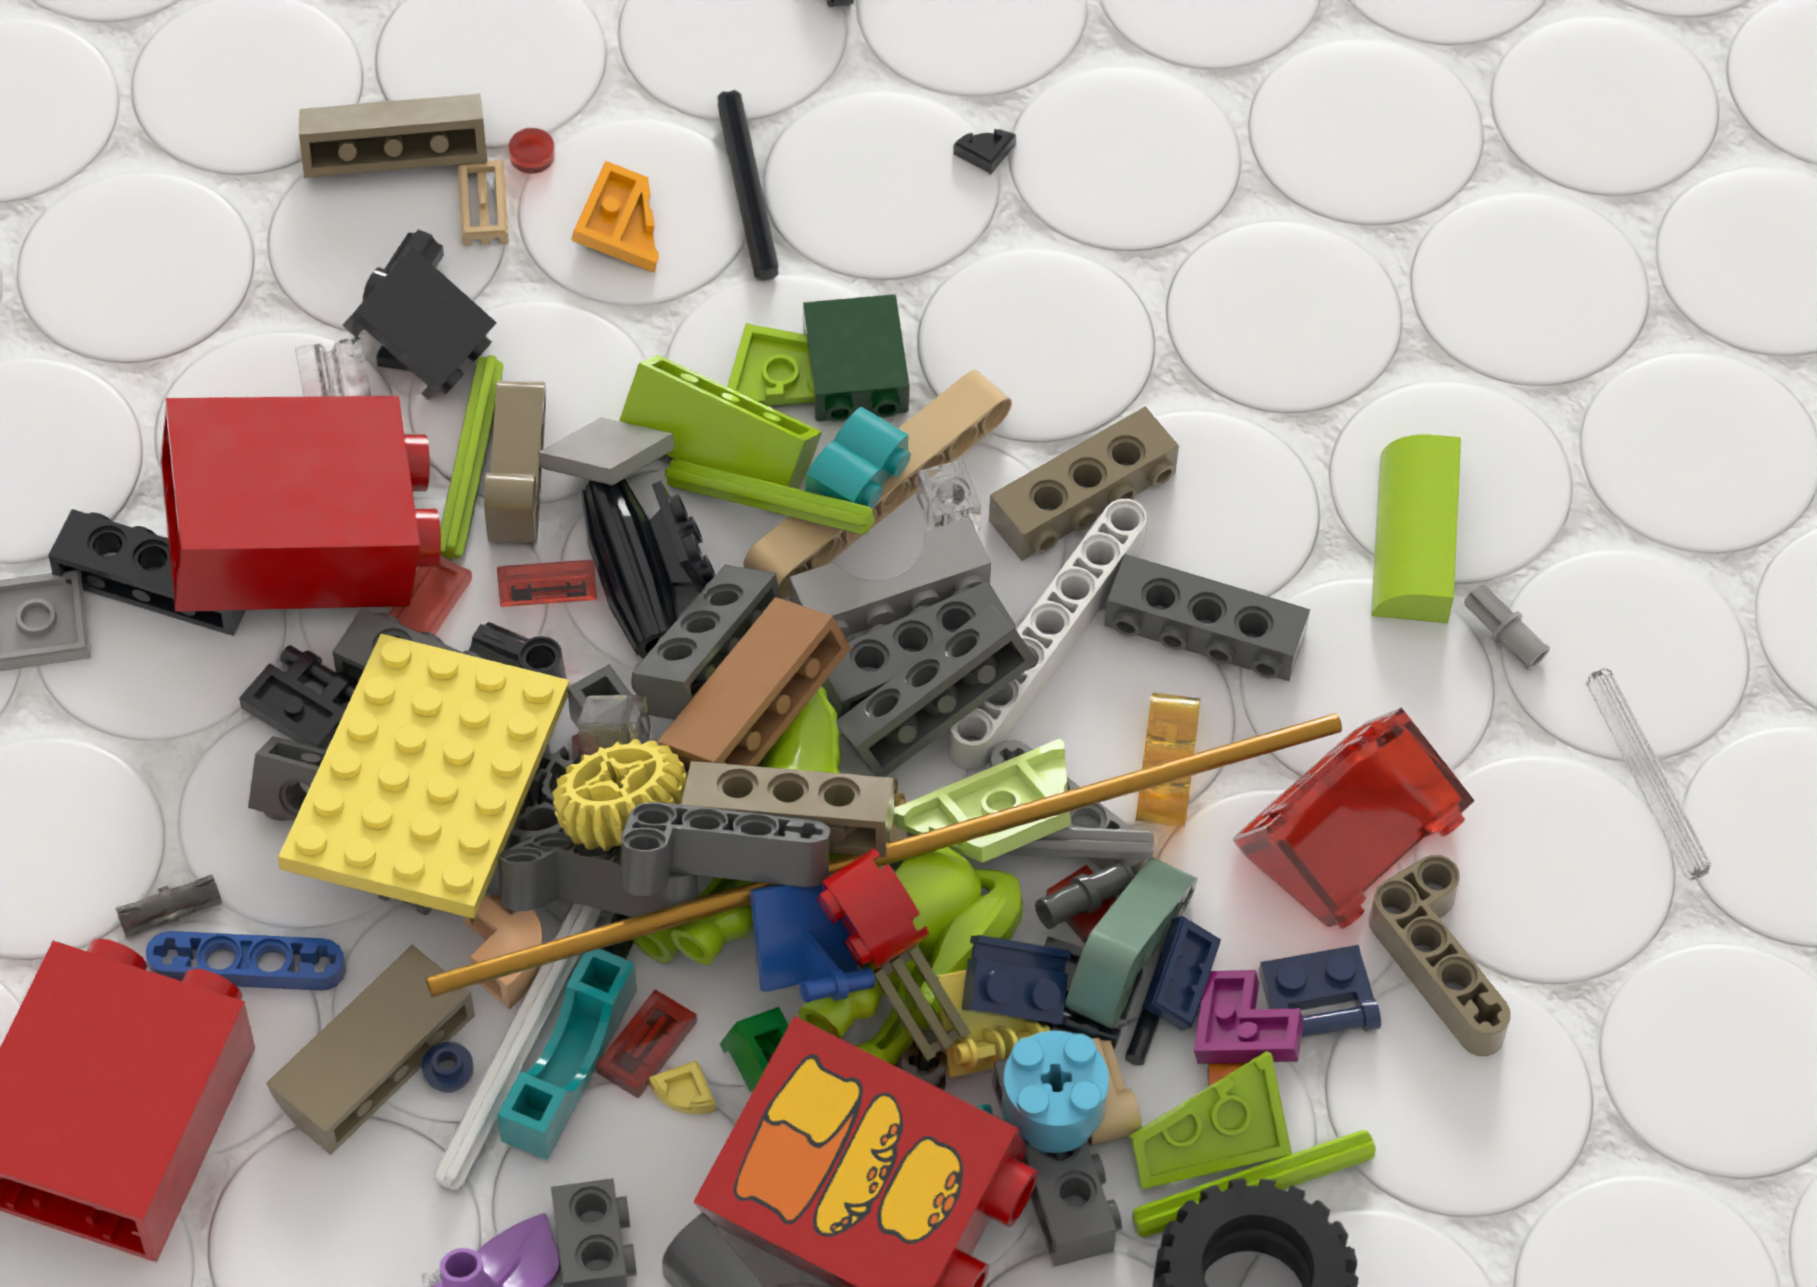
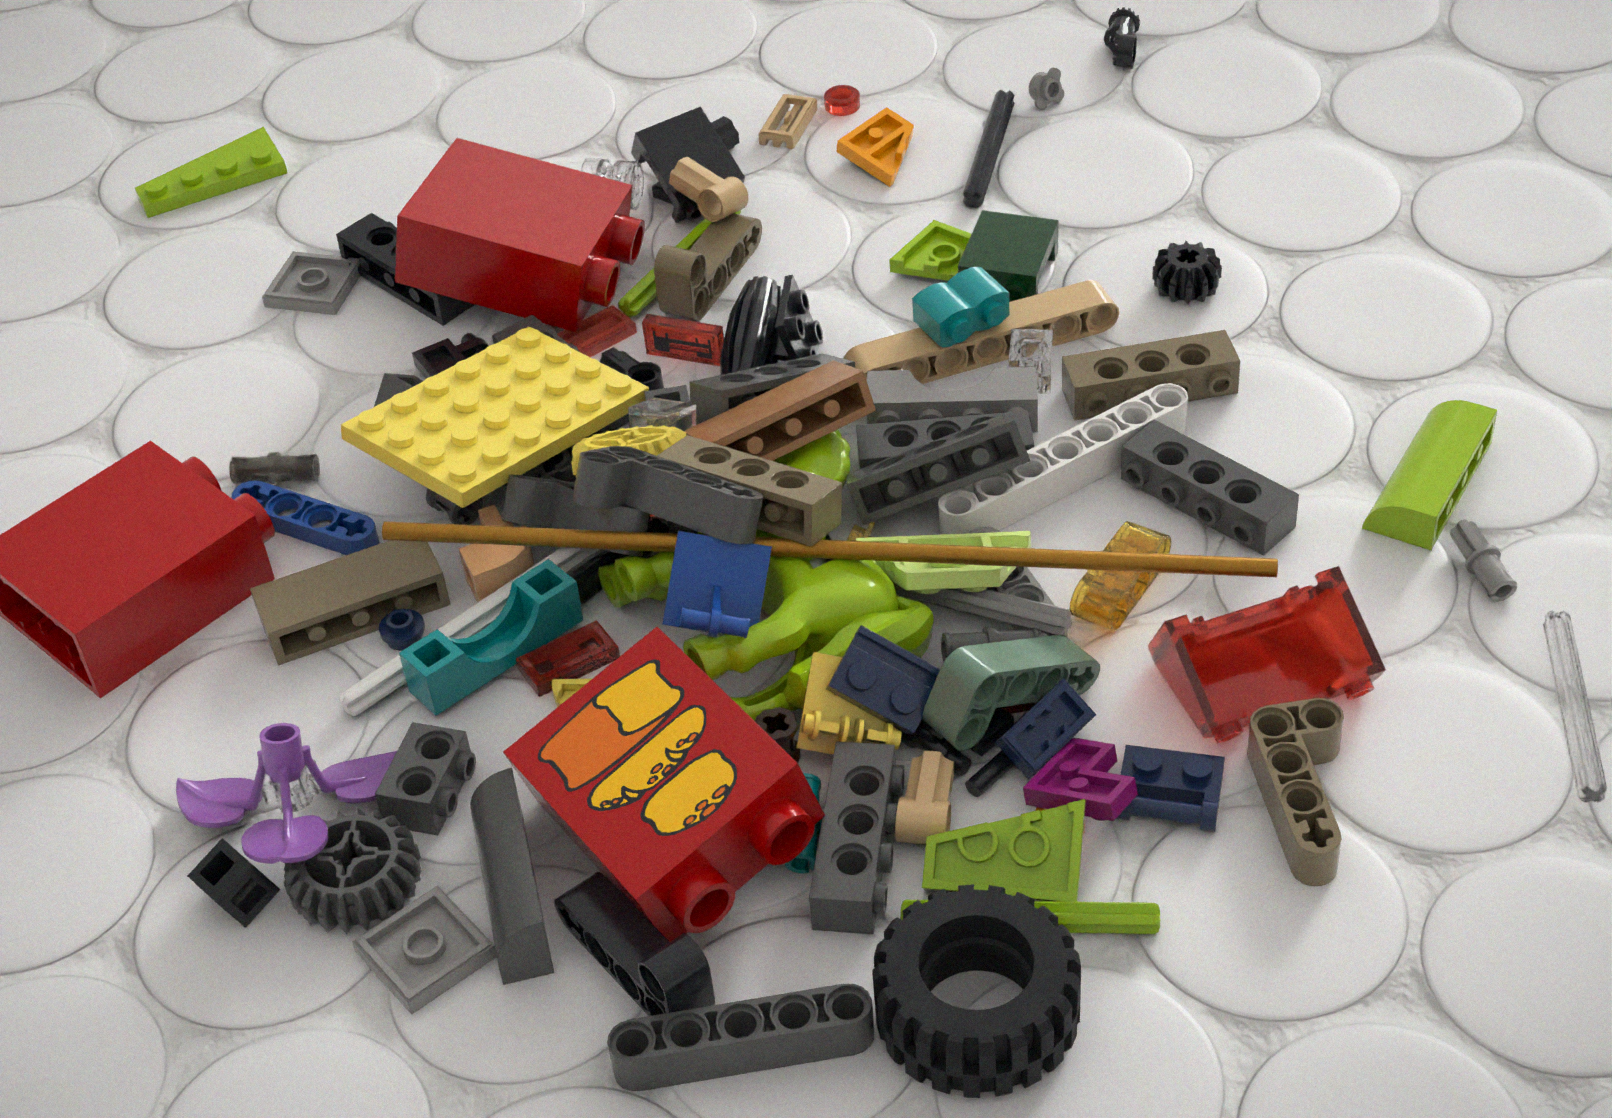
camera: 30 degrees right, 15 degrees down
(392, 135) = (744, 69): dark tan brick -> none
(492, 371) = (714, 196): none -> tan piece
(606, 451) = (776, 266): light grey tile -> none
(719, 424) = (865, 273): lime brick -> none
(770, 496) = (885, 319): lime axle -> none
(774, 73) = (1046, 88): none -> light grey plate
(872, 910) = (768, 570): red brick -> none
(943, 1038) = (777, 628): olive tile -> none
(985, 149) = (1188, 165): black tile -> none
(1059, 323) = (1187, 272): none -> black gear
(1060, 1064) = (867, 766): medium azure brick -> none

